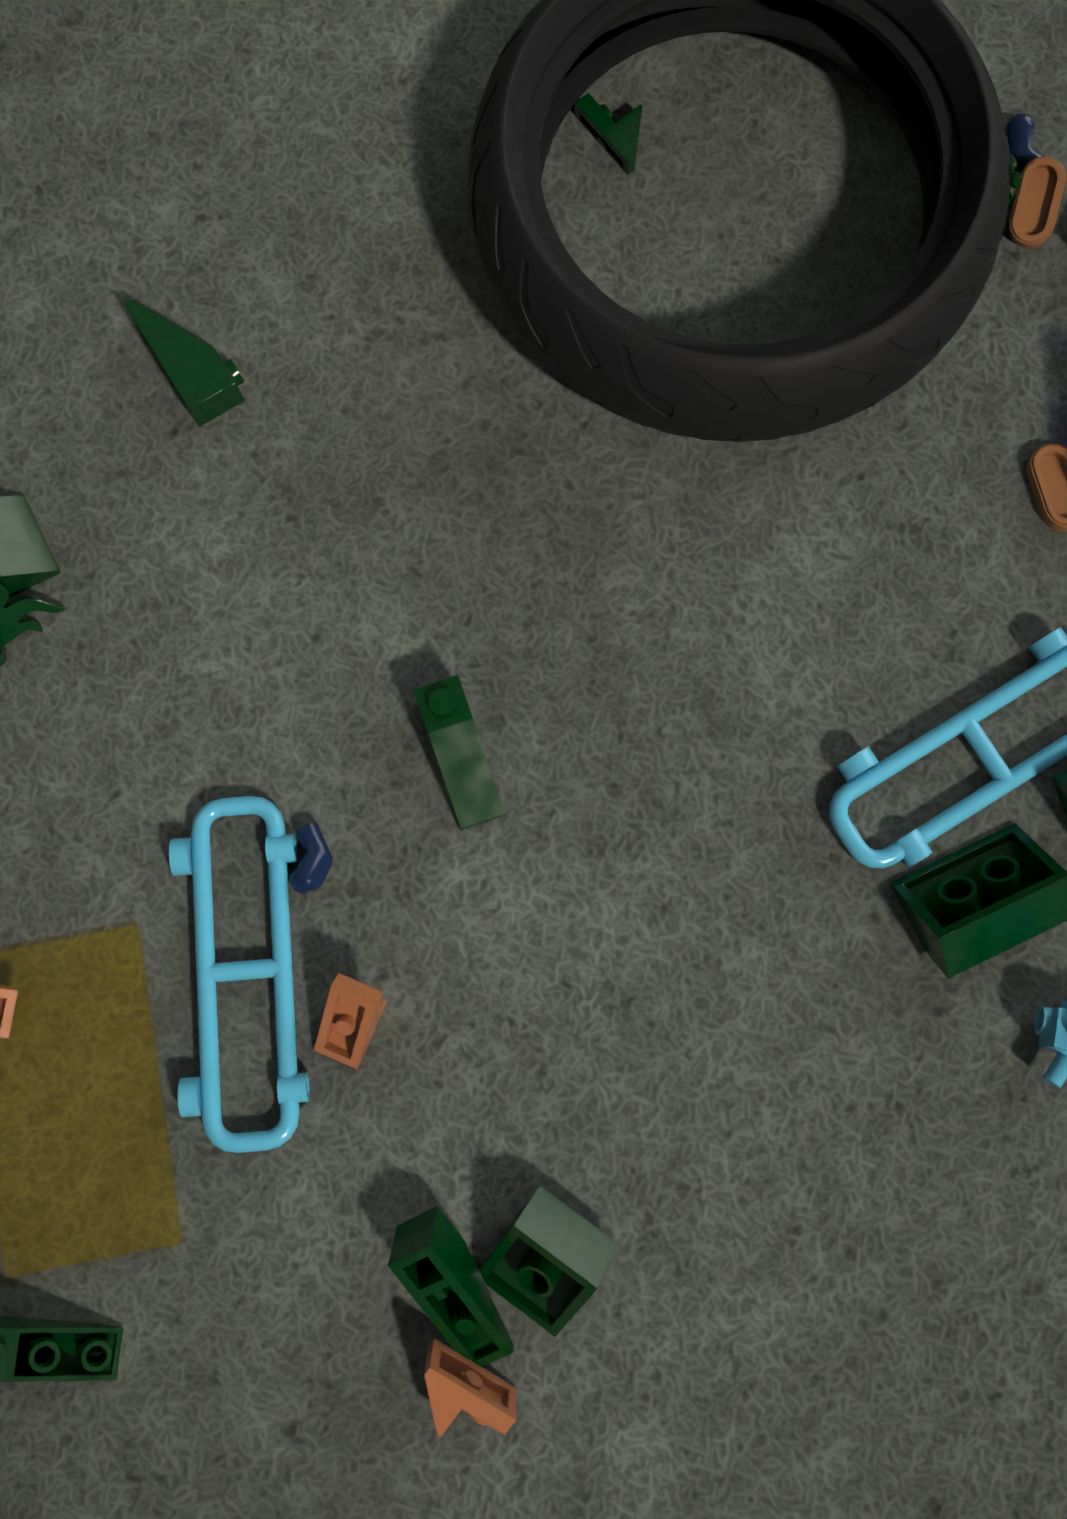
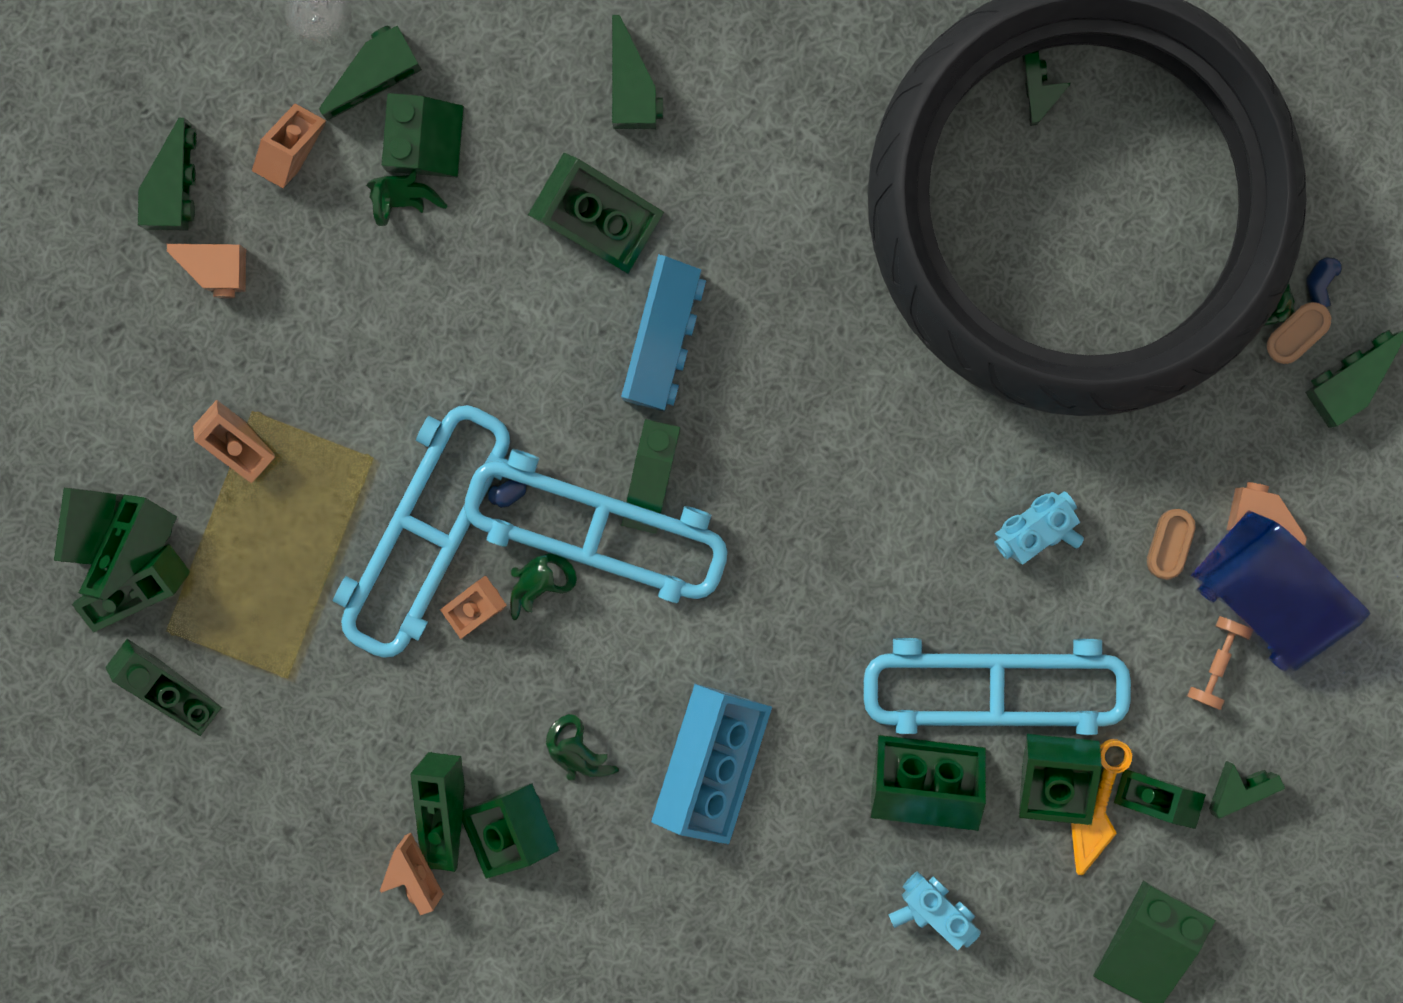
camera: 25 degrees right, 10 degrees up
(228, 514) = (595, 212): none -> dark green slope
(310, 830) = (522, 468): none -> medium azure bar
(377, 592) = (662, 334): none -> dark azure slope
(400, 946) = (536, 579): none -> dark green piece
(565, 1119) = (573, 754): none -> dark green piece
(730, 1034) = (711, 765): none -> dark azure slope
(912, 548) = (1041, 525): none -> medium azure brick

